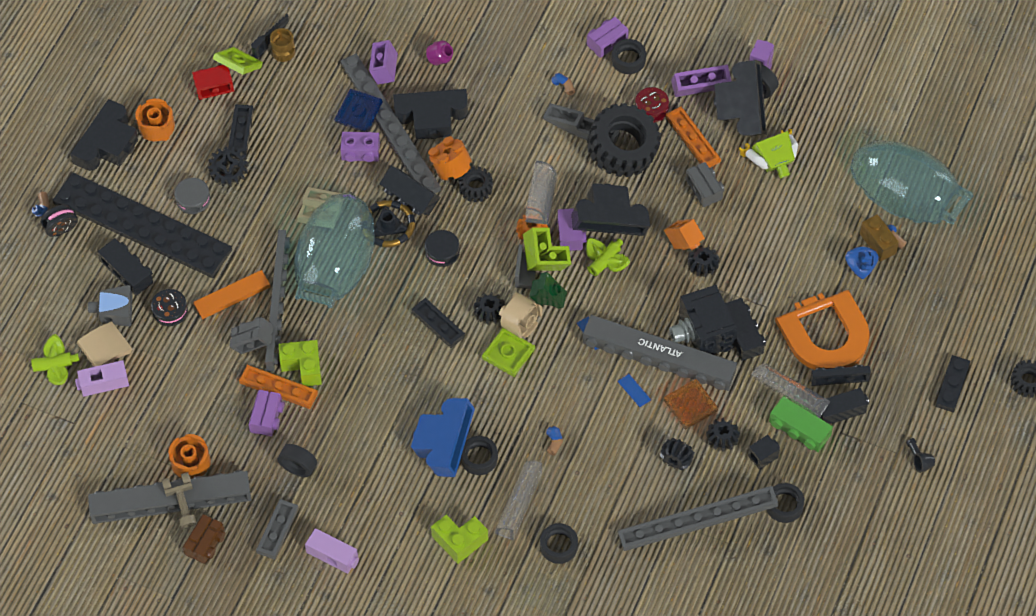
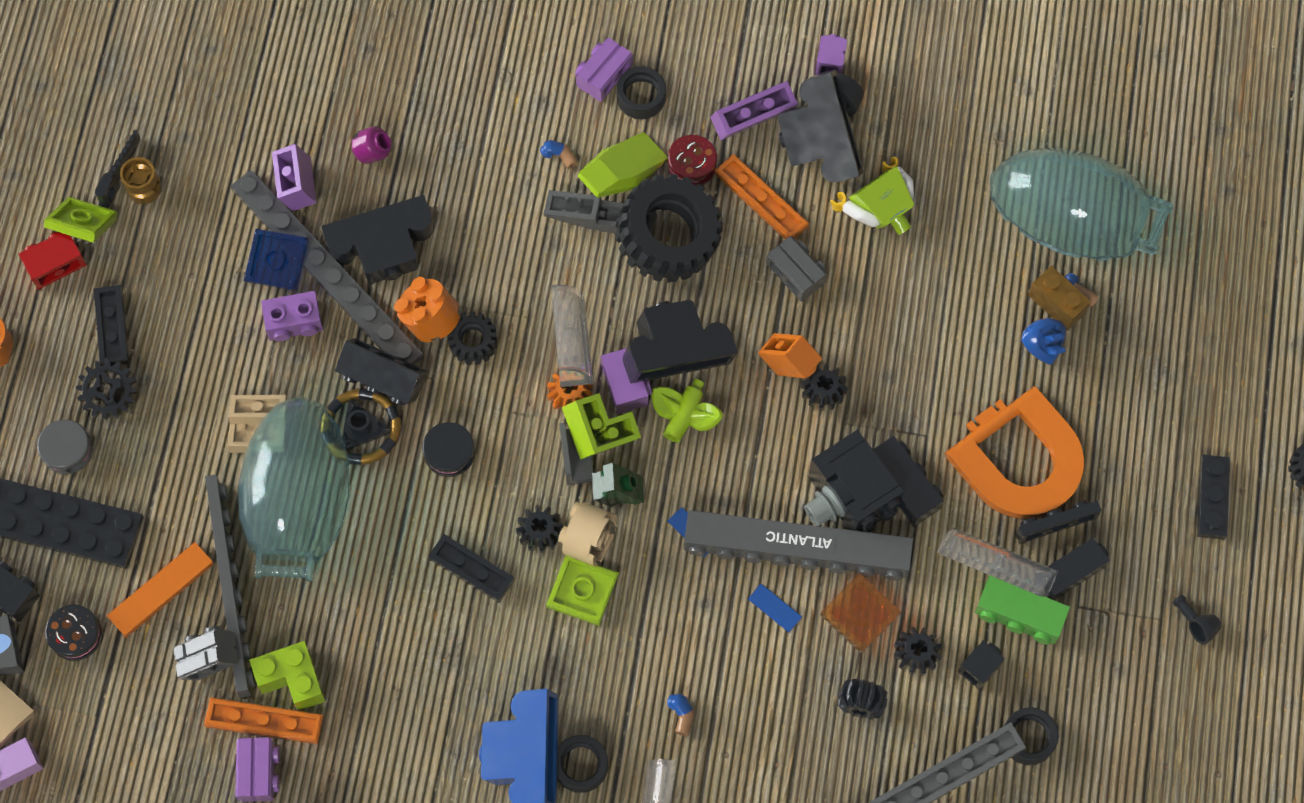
camera: 15 degrees left, 10 degrees up
(597, 97) = (622, 166): none -> lime piece

